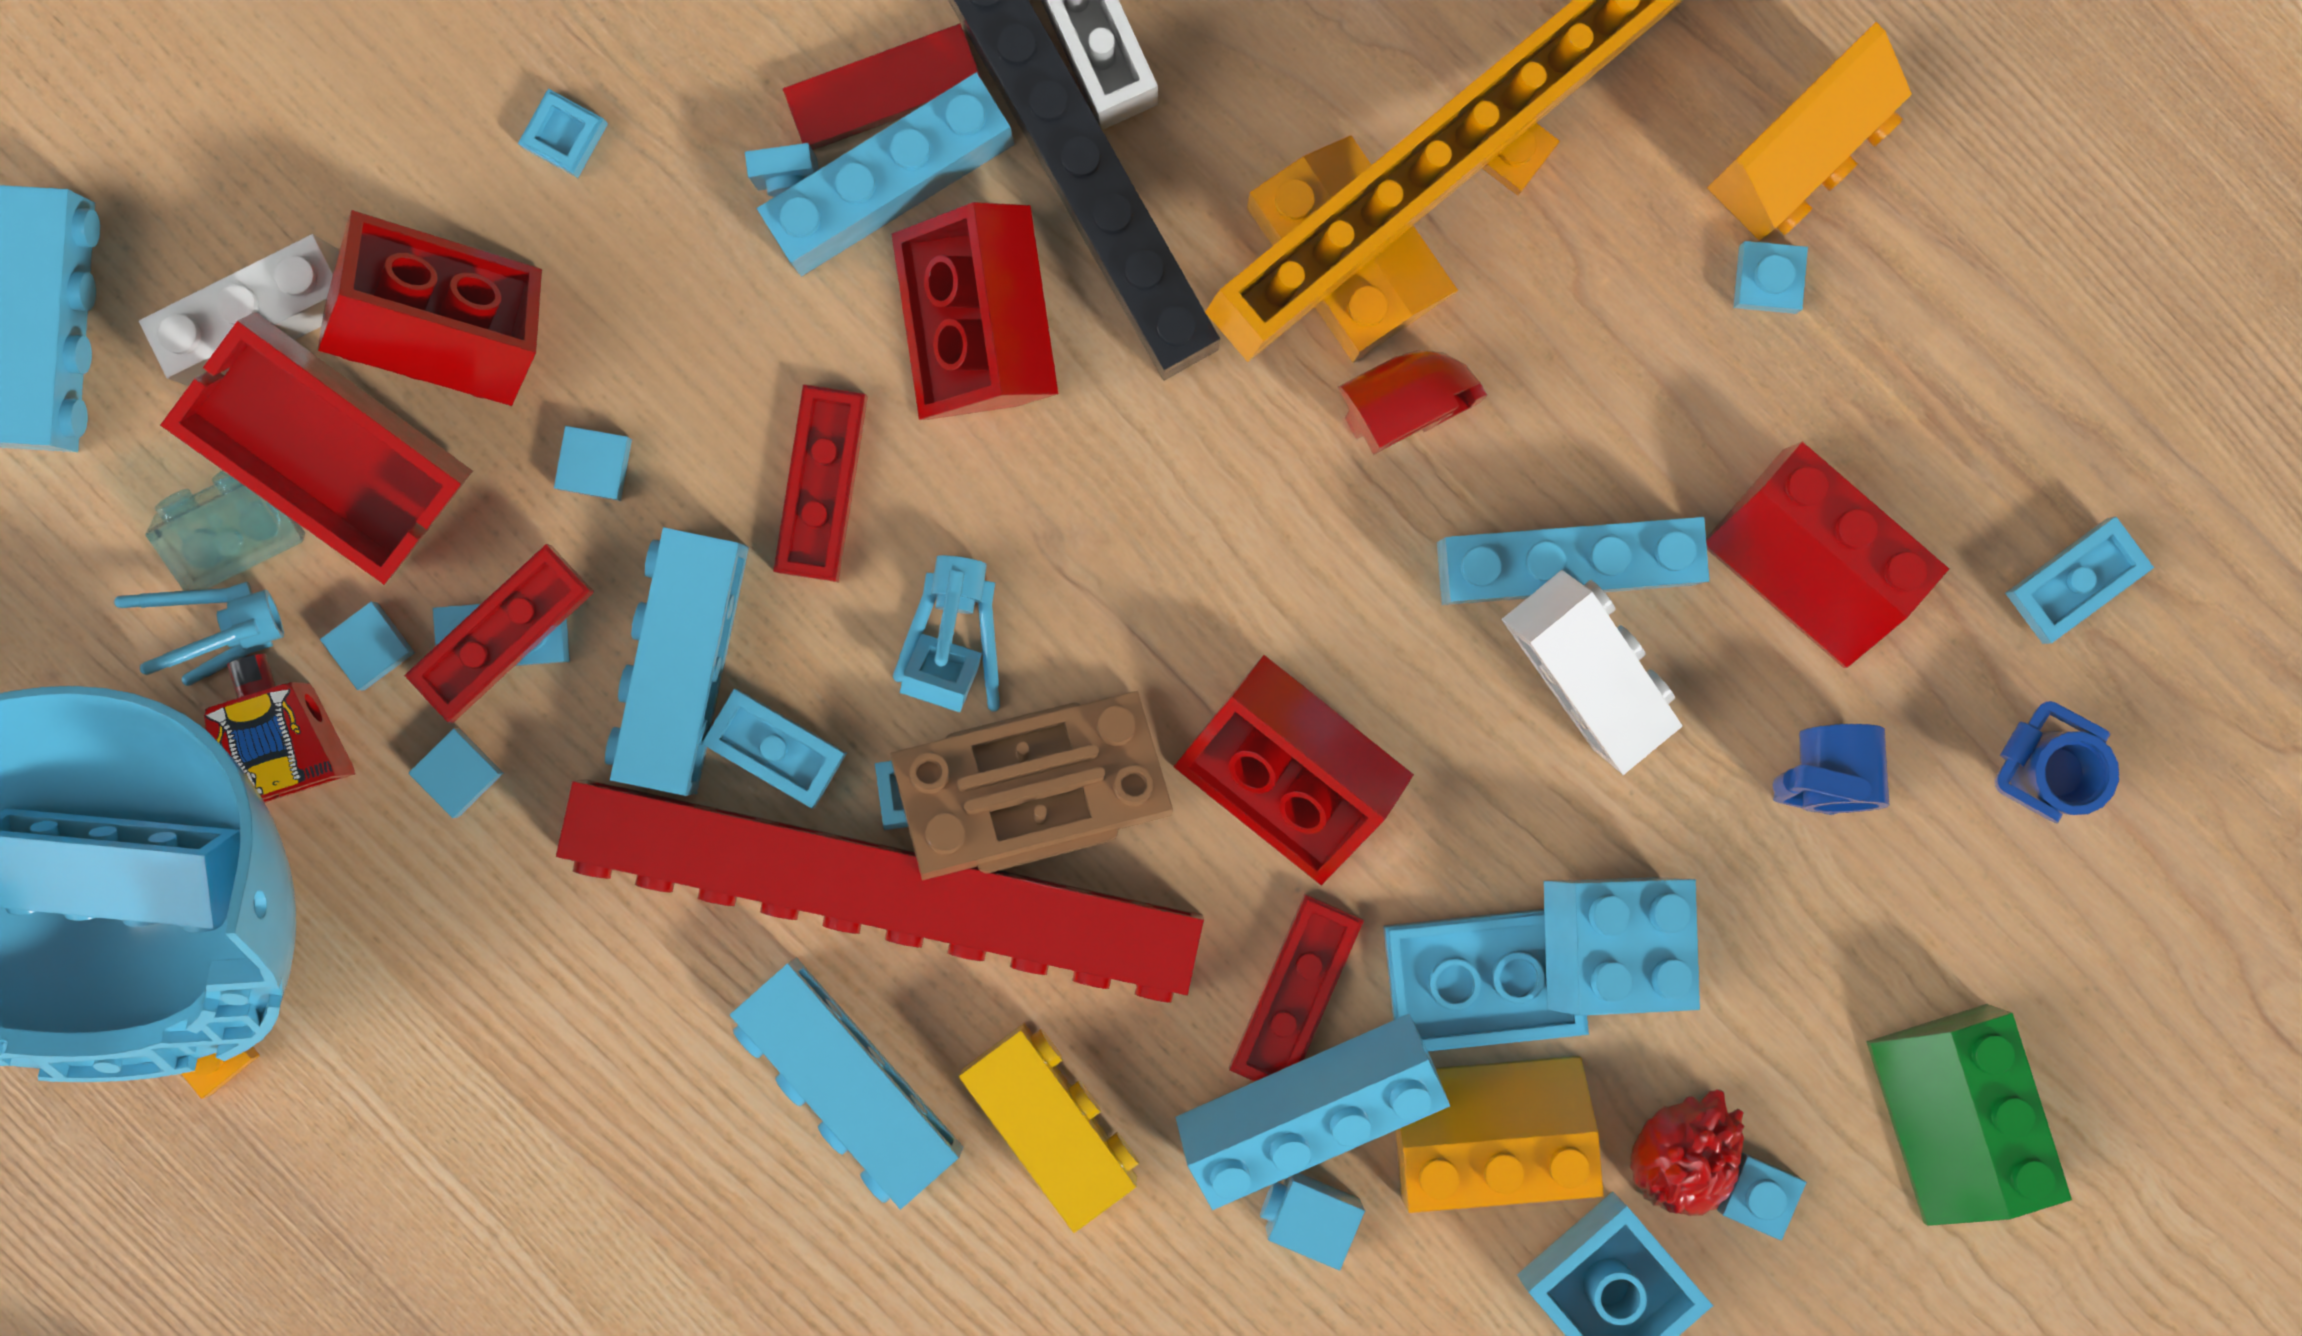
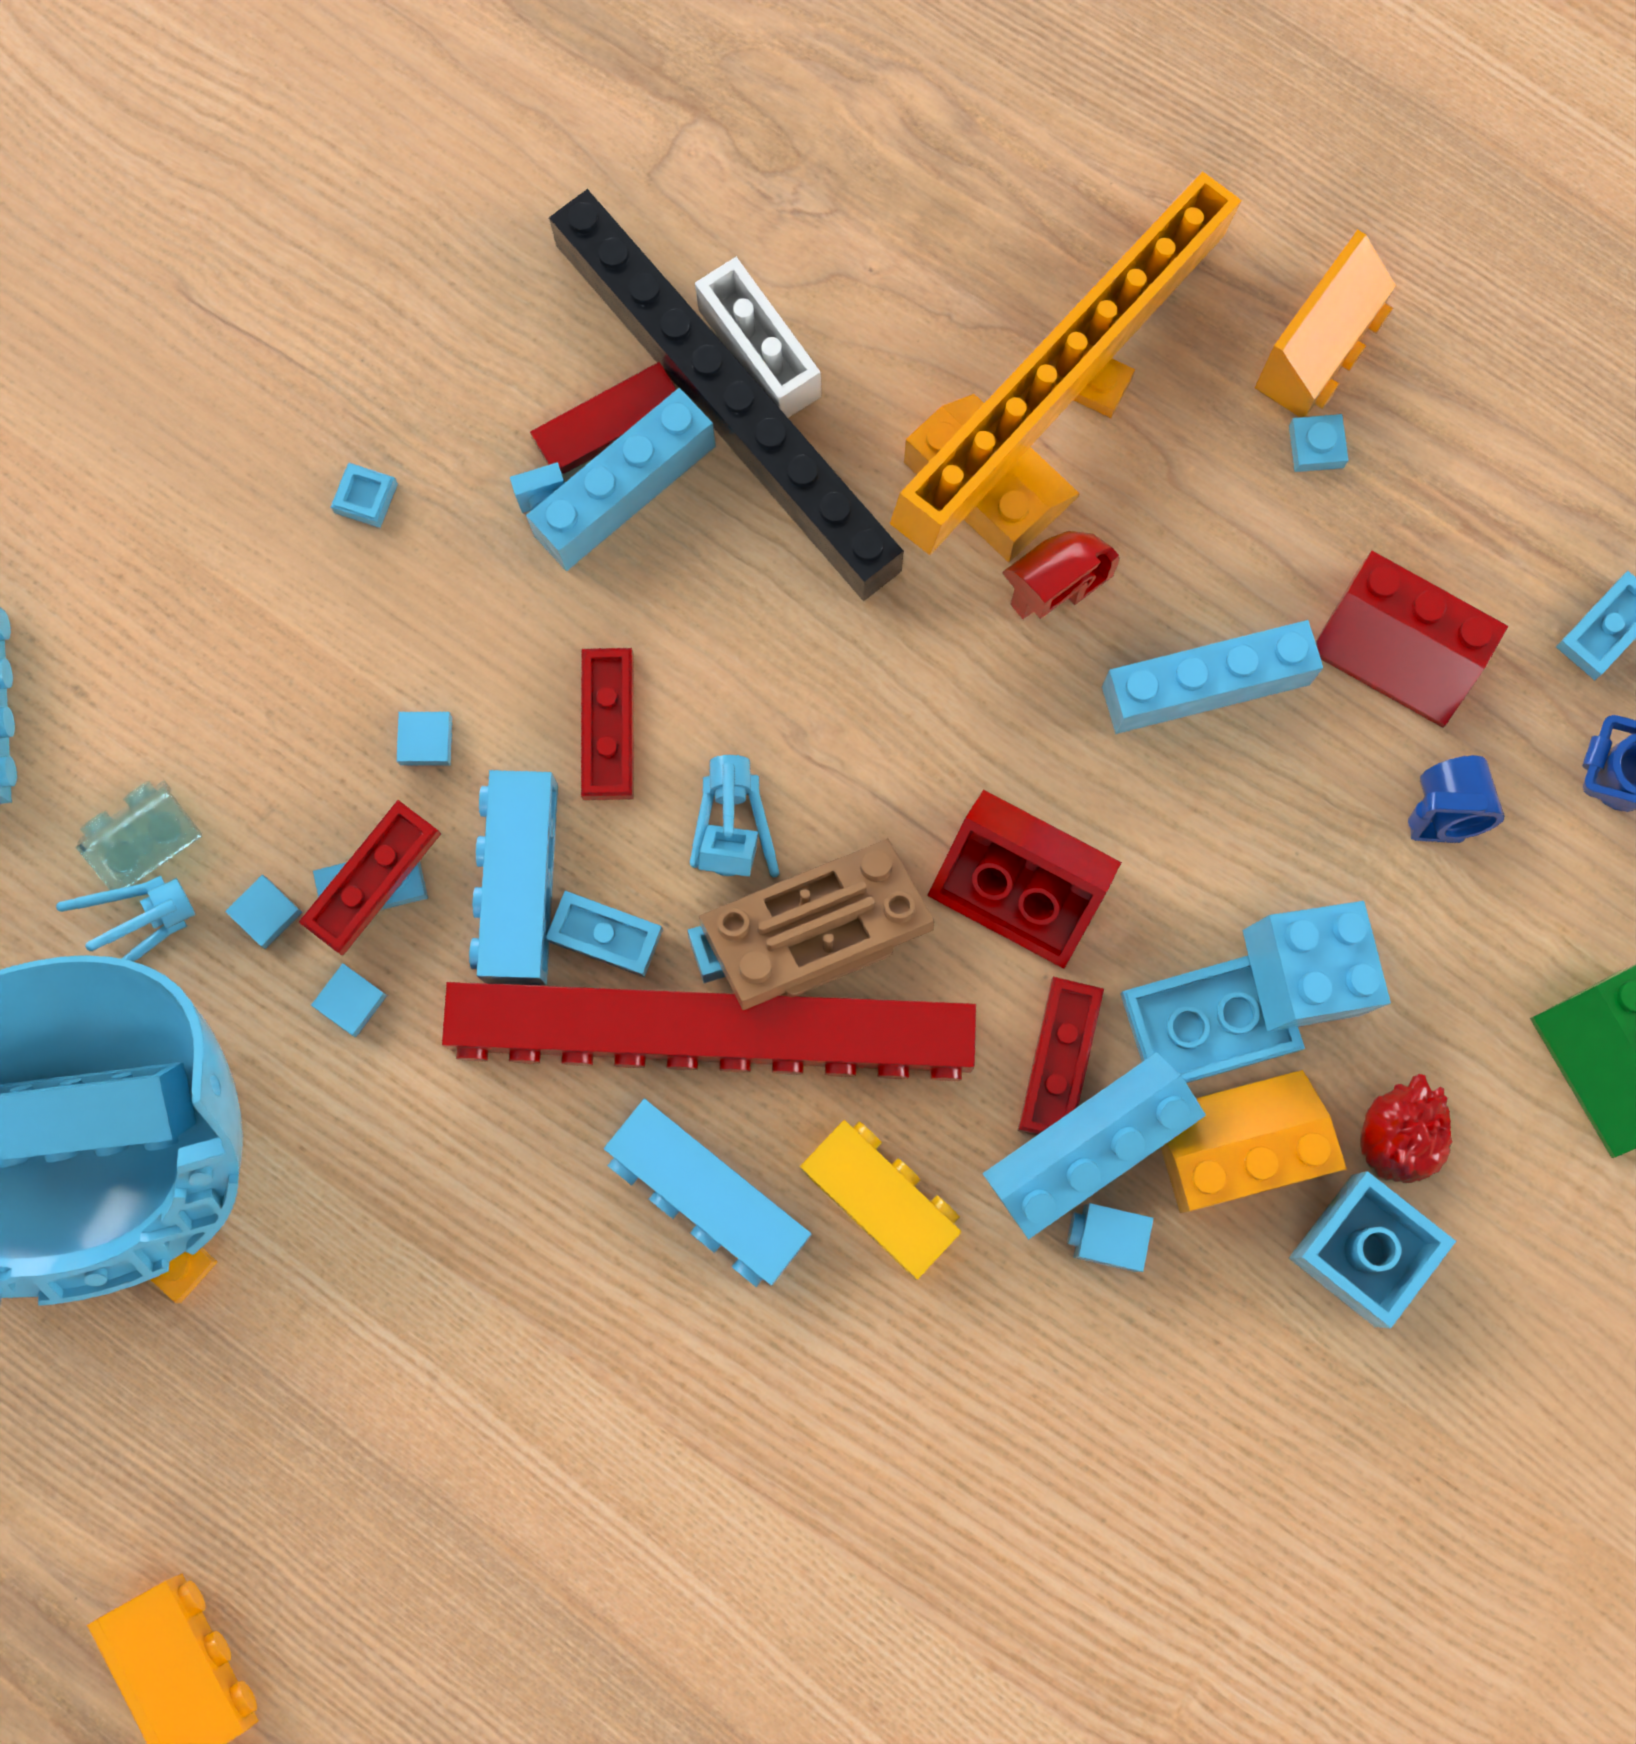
camera: 10 degrees left, 10 degrees down
(277, 732) = (208, 983): torso -> none
(282, 288) = (139, 666): white brick -> none
(316, 446) = (206, 752): red piece -> none
(432, 309) = (282, 636): red slope -> none
(974, 310) = (707, 569): red slope -> none
(1594, 669) = (1247, 752): white brick -> none
(1763, 1197) = (1475, 1157): medium azure plate -> none

